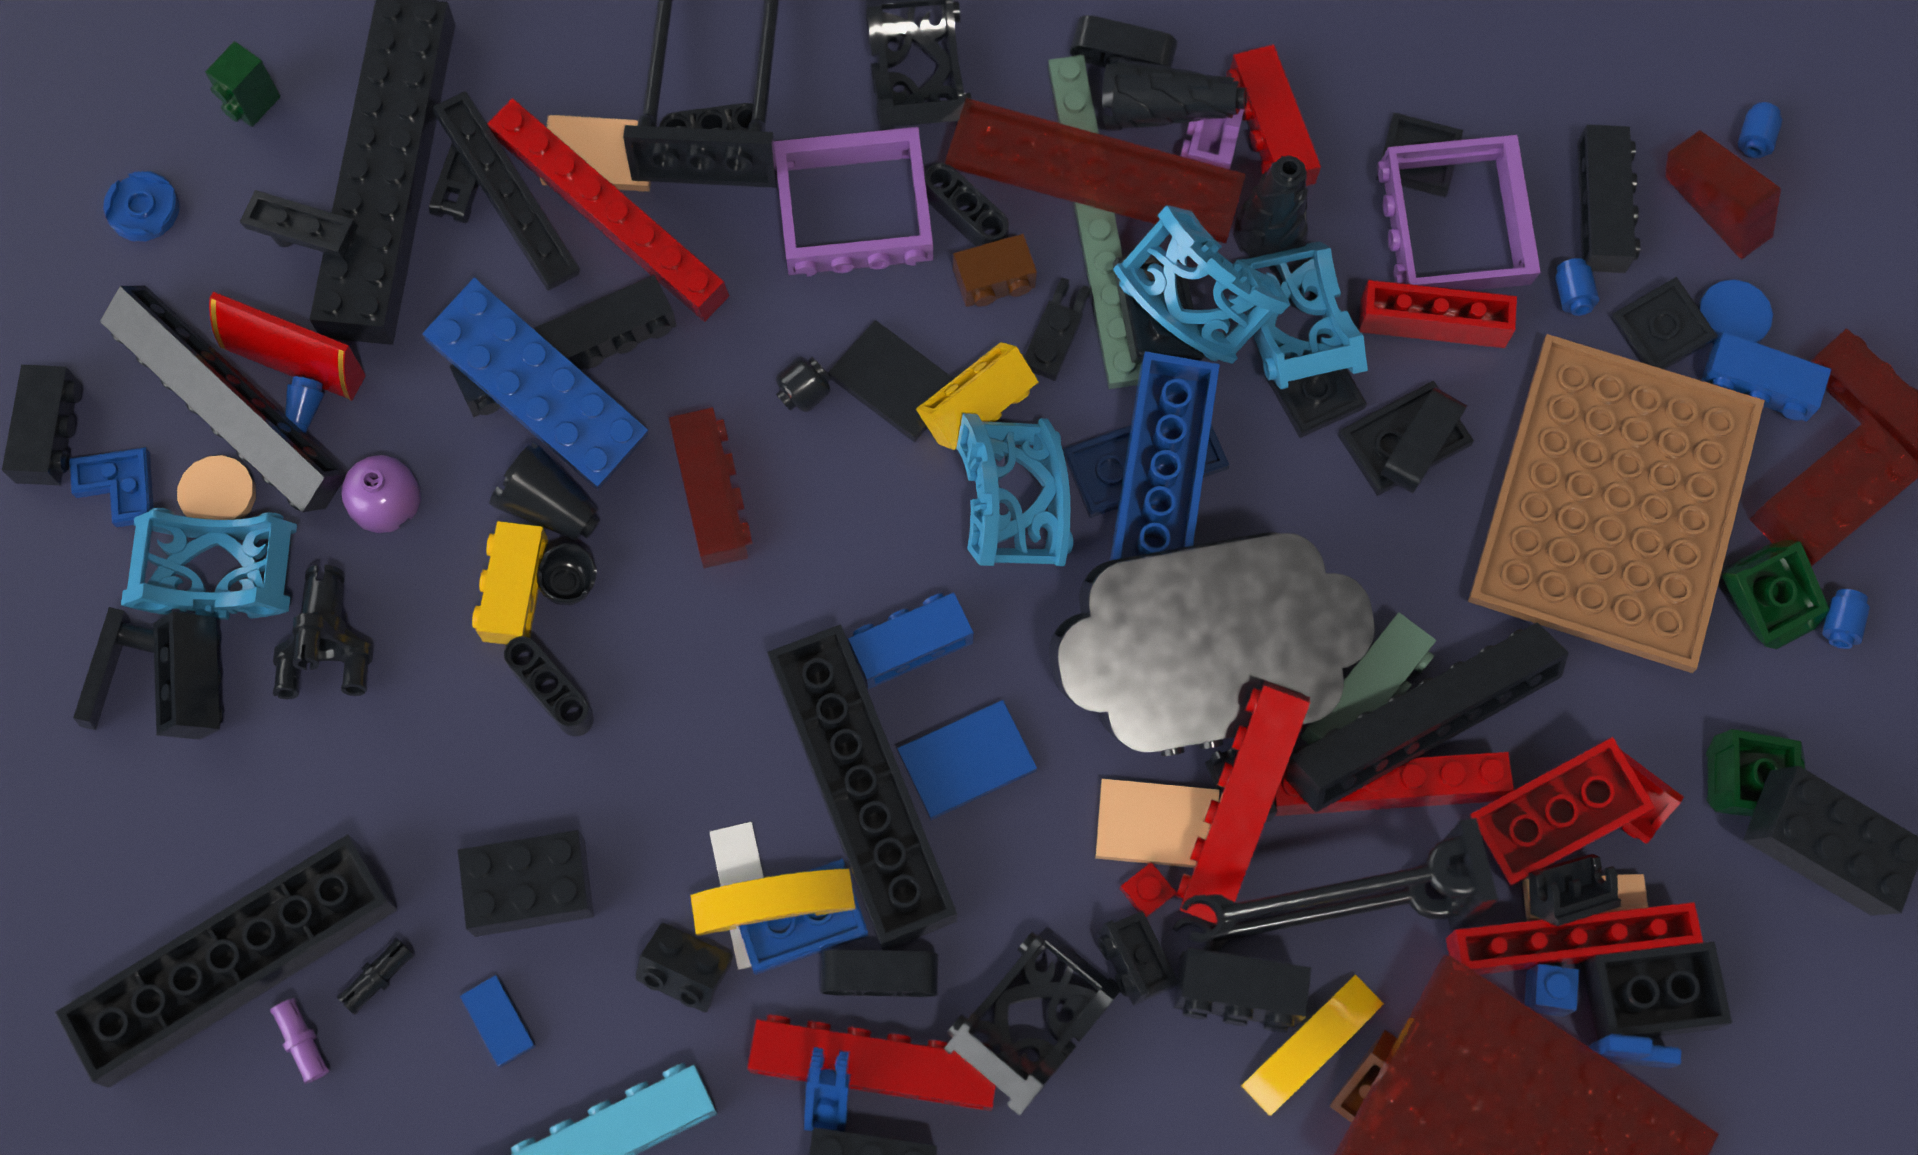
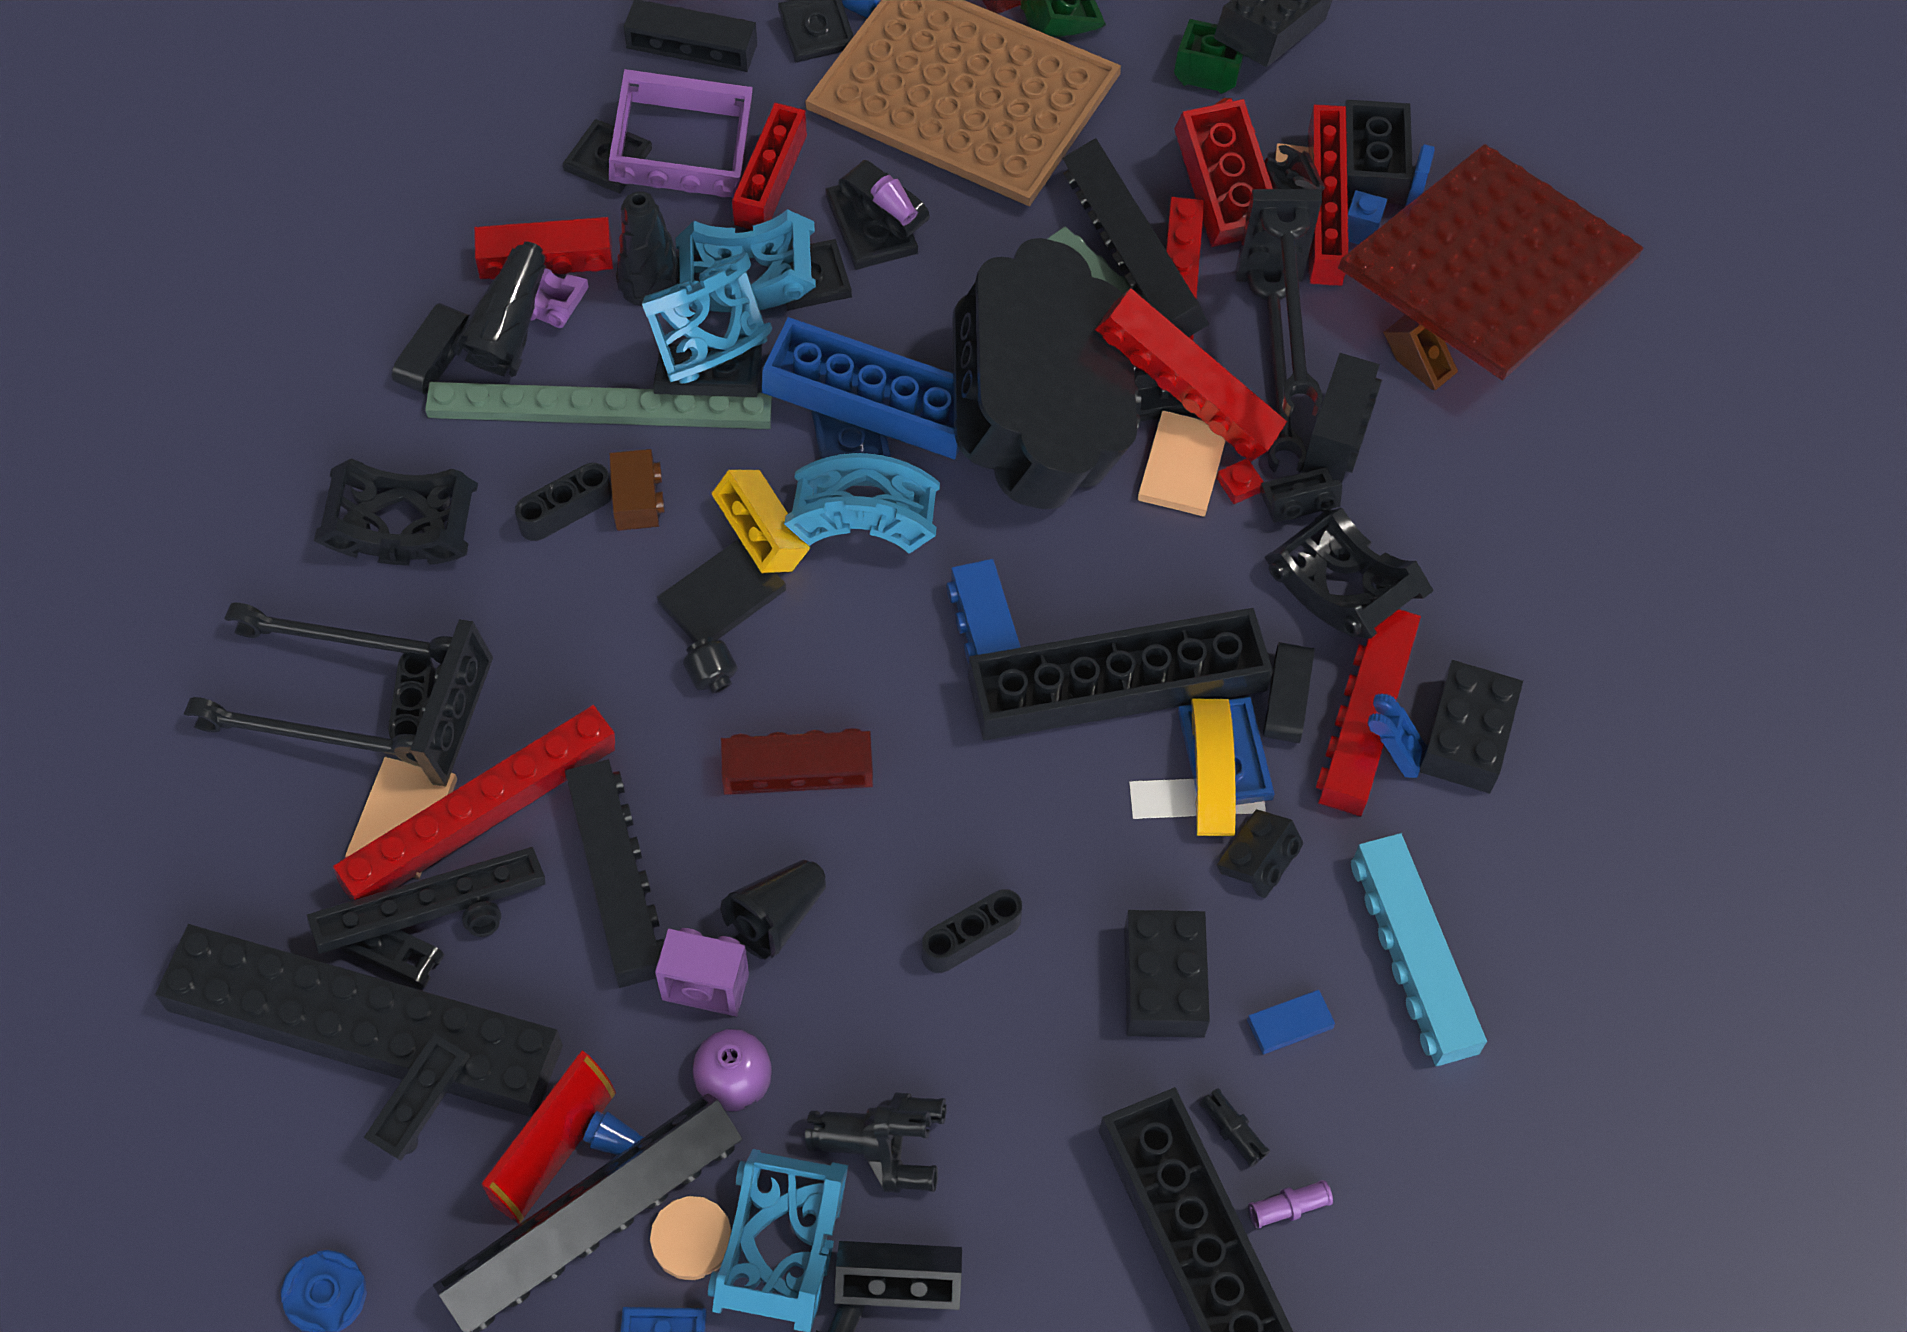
camera: 80 degrees left, 10 degrees down
(242, 85) = (218, 1150): dark green brick -> none
(461, 442) = (702, 971): none -> medium lavender brick
(500, 243) = (482, 918): none -> black plate
(510, 582) = (859, 952): yellow brick -> none
(535, 384) = (661, 886): blue brick -> none
(566, 574) = (861, 897): black hair -> none
(847, 150) = (529, 651): medium lavender window -> none
(966, 760) = (1100, 590): blue tile -> none
(1056, 332) = (701, 452): black hinge -> none
(1091, 168) = (557, 389): clear red plate -> none
(1312, 1045) = (1397, 393): yellow slope -> none
(1407, 442) = (892, 198): none -> medium lavender cone
(1576, 287) = (766, 73): blue brick -> none

